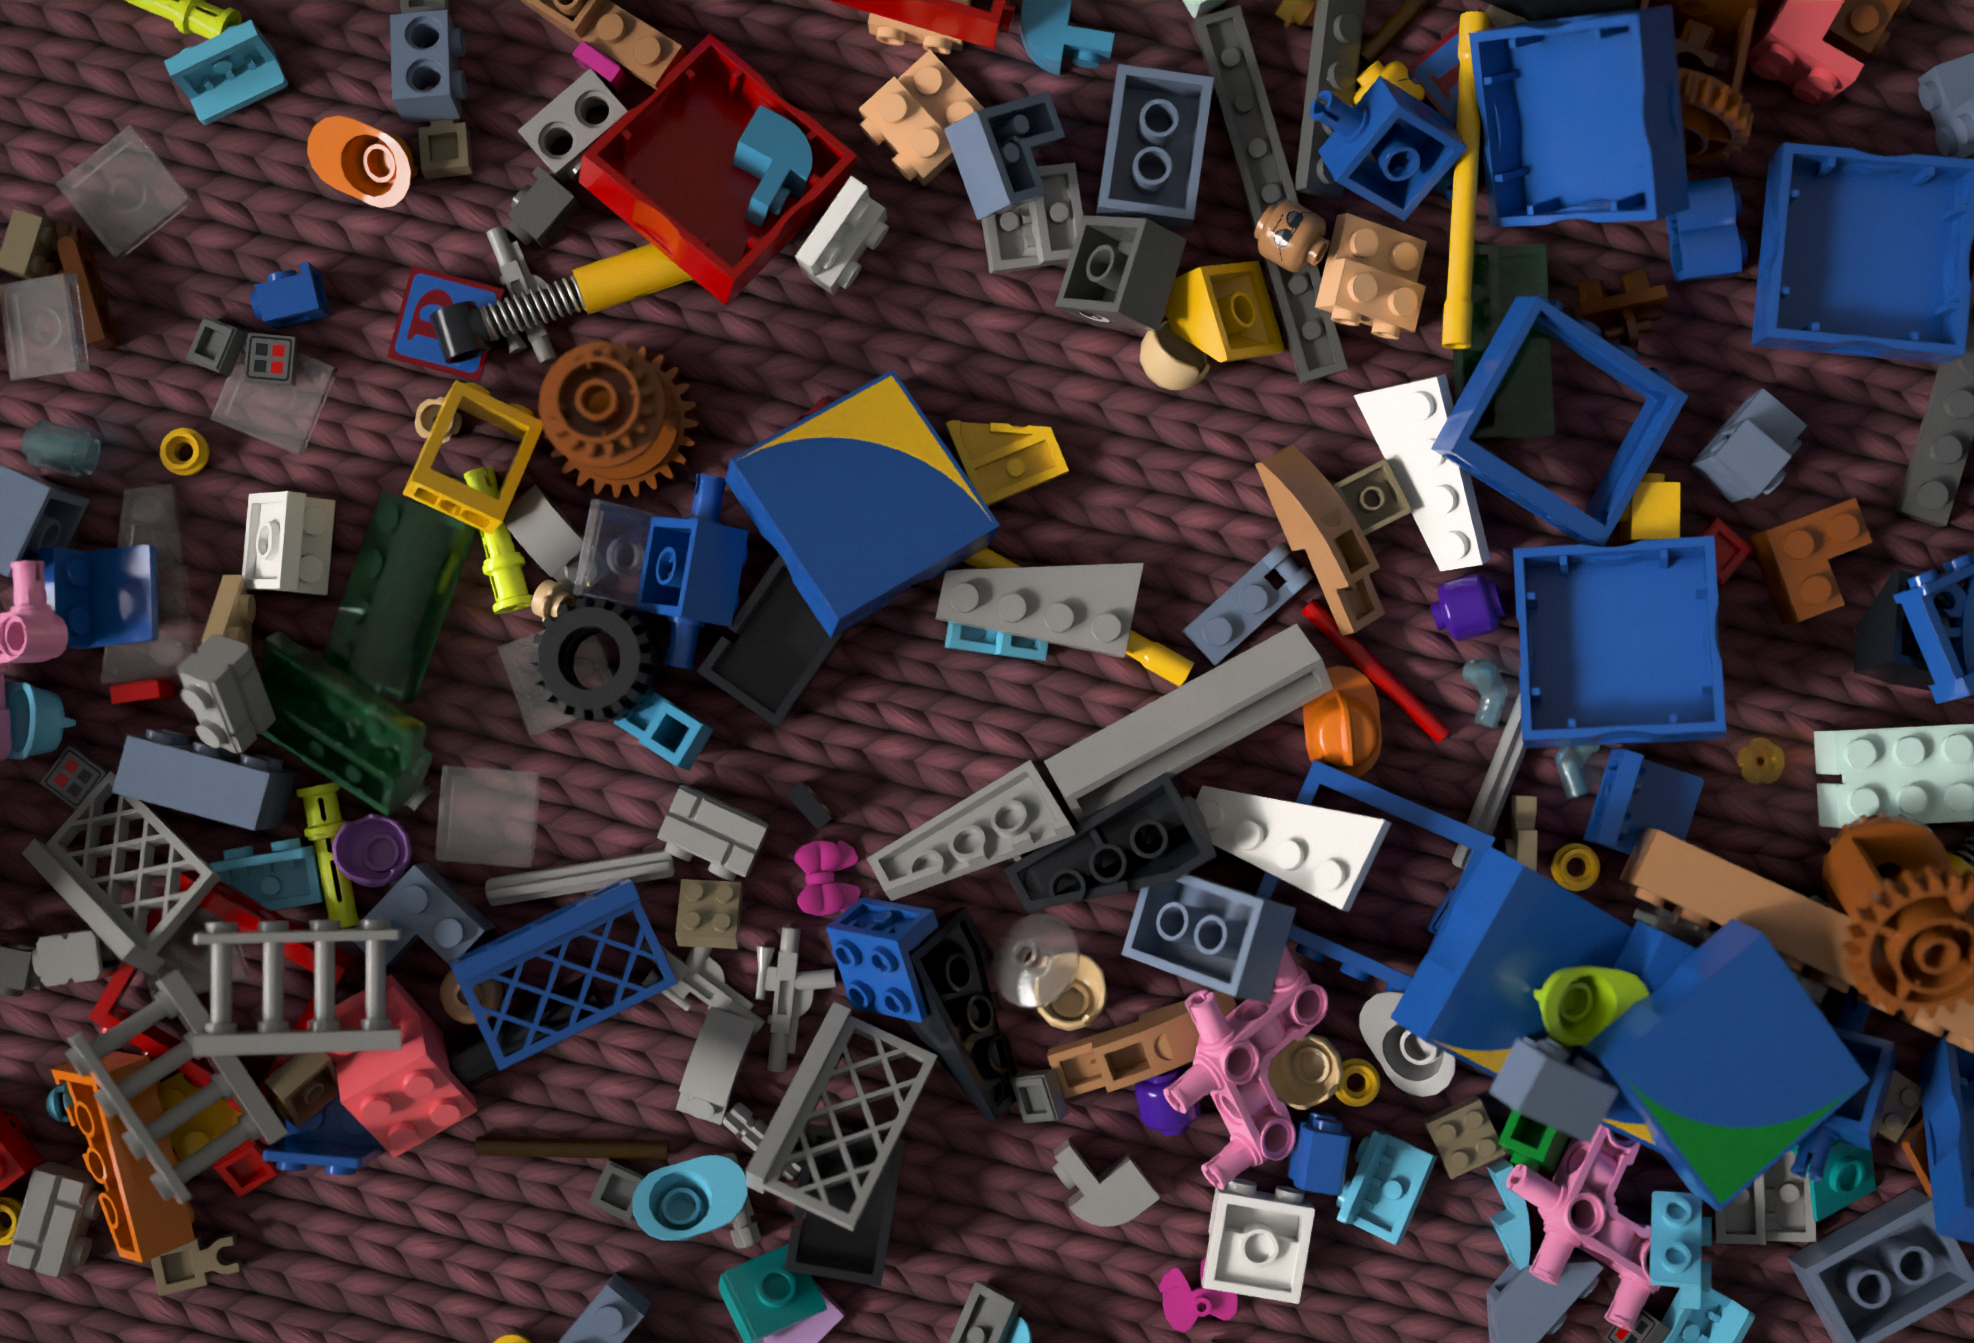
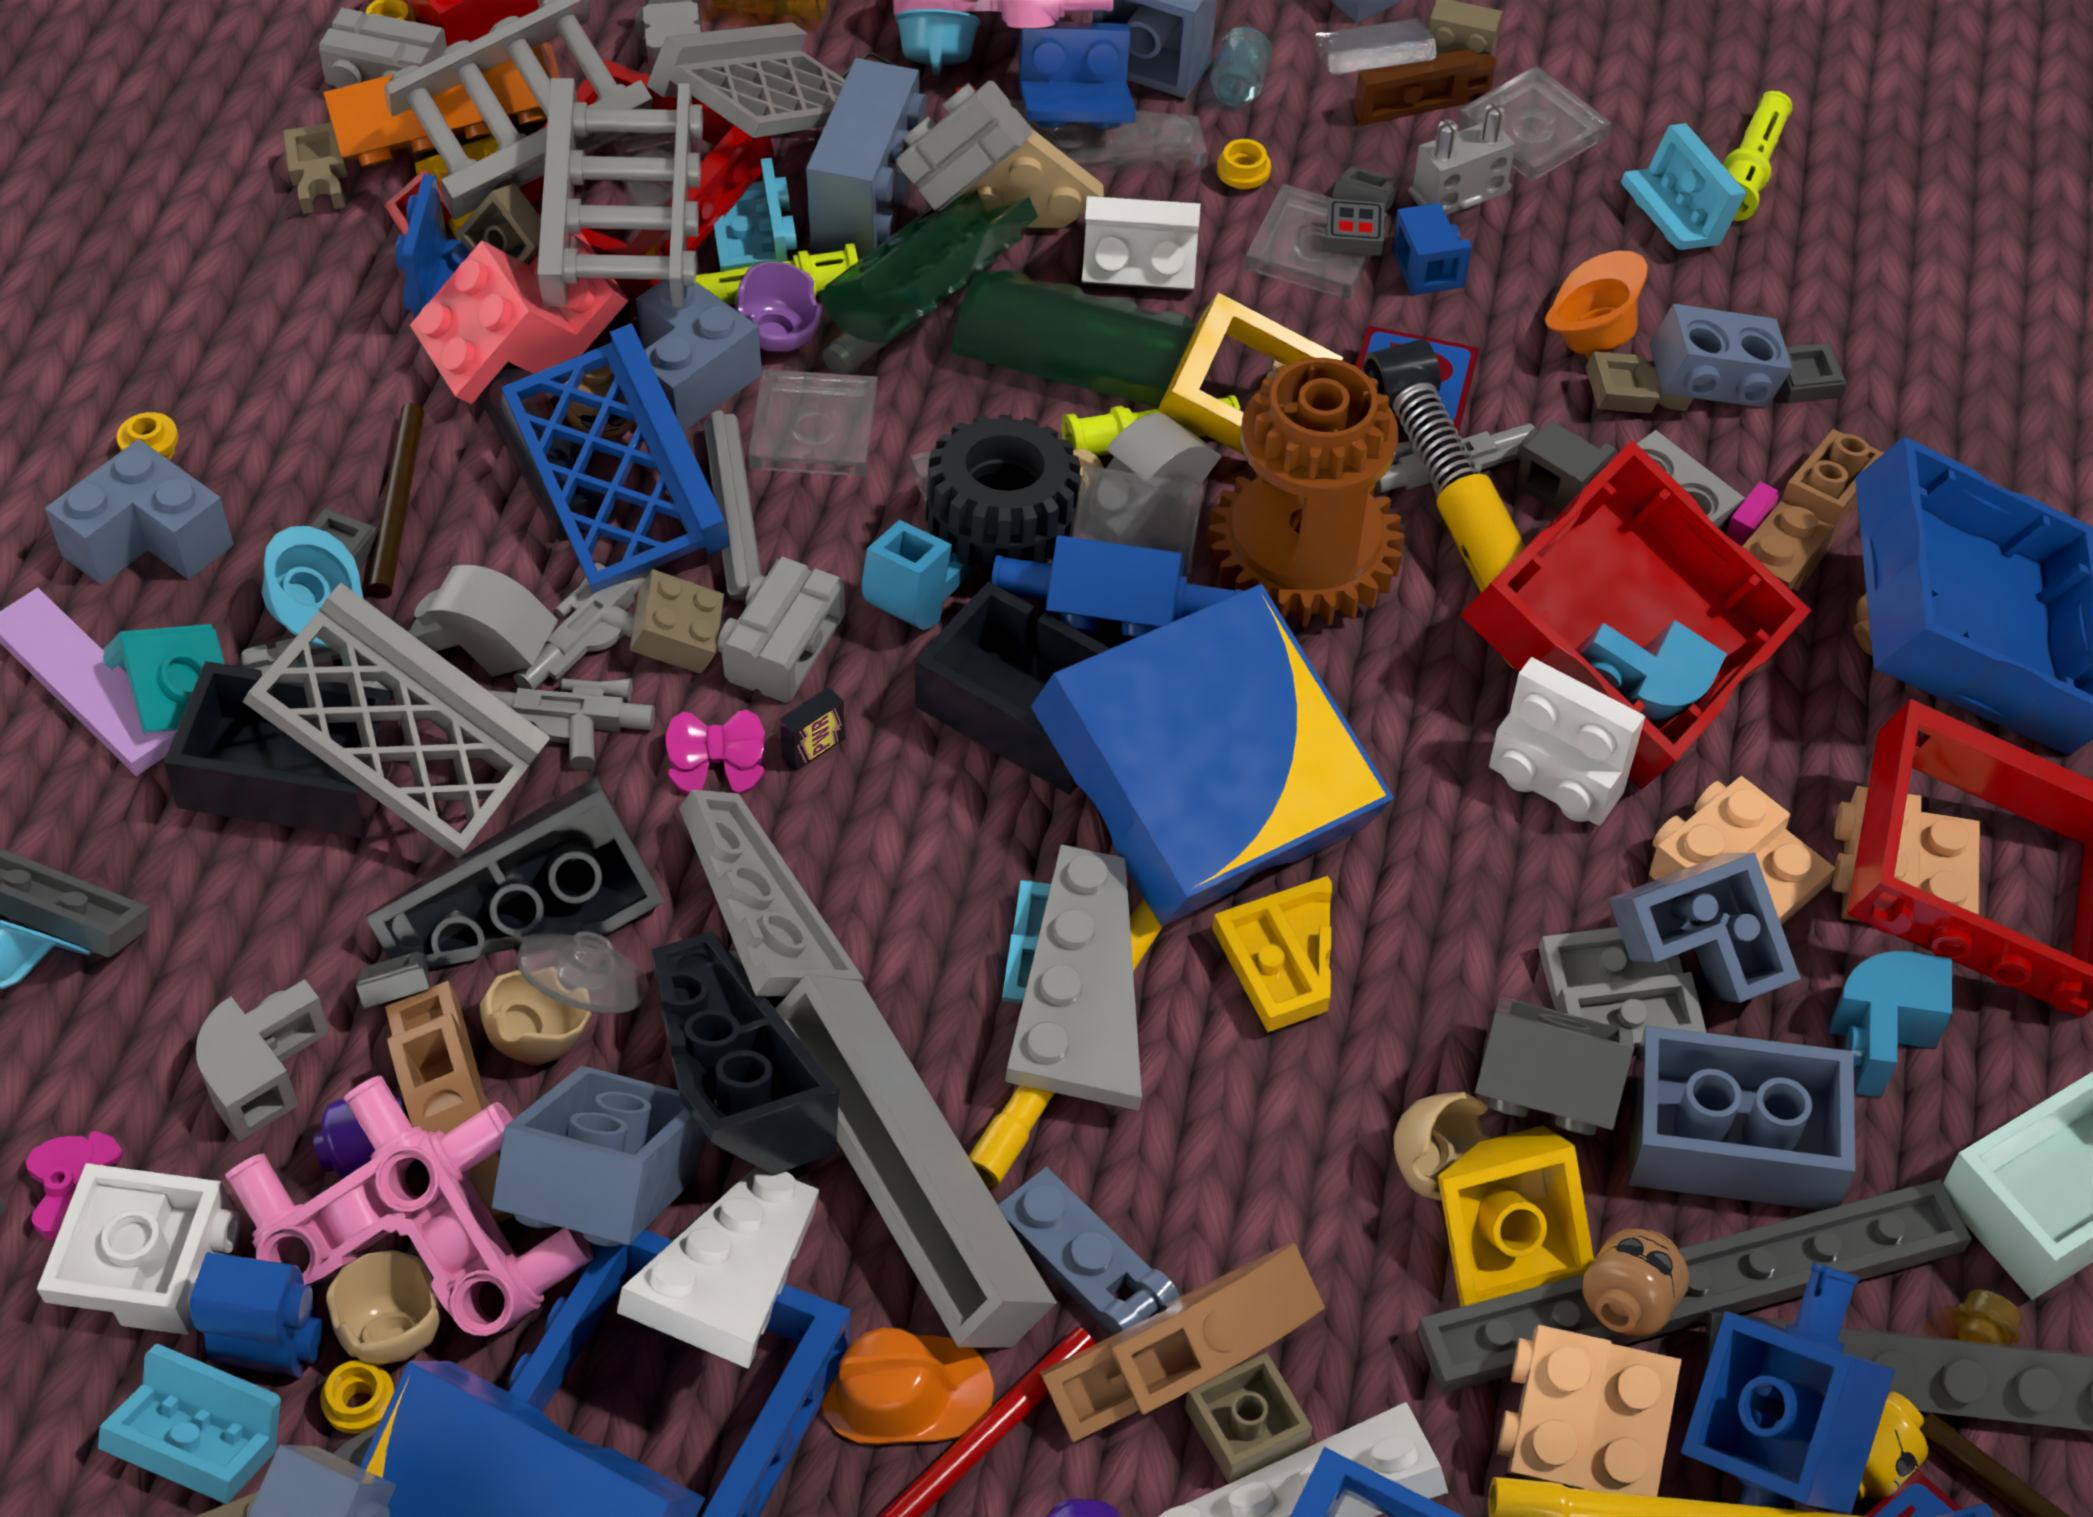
camera: 90 degrees right, 35 degrees down
(198, 261) = (1464, 165): none -> light grey piece
(874, 957) = (638, 771): blue bracket -> none

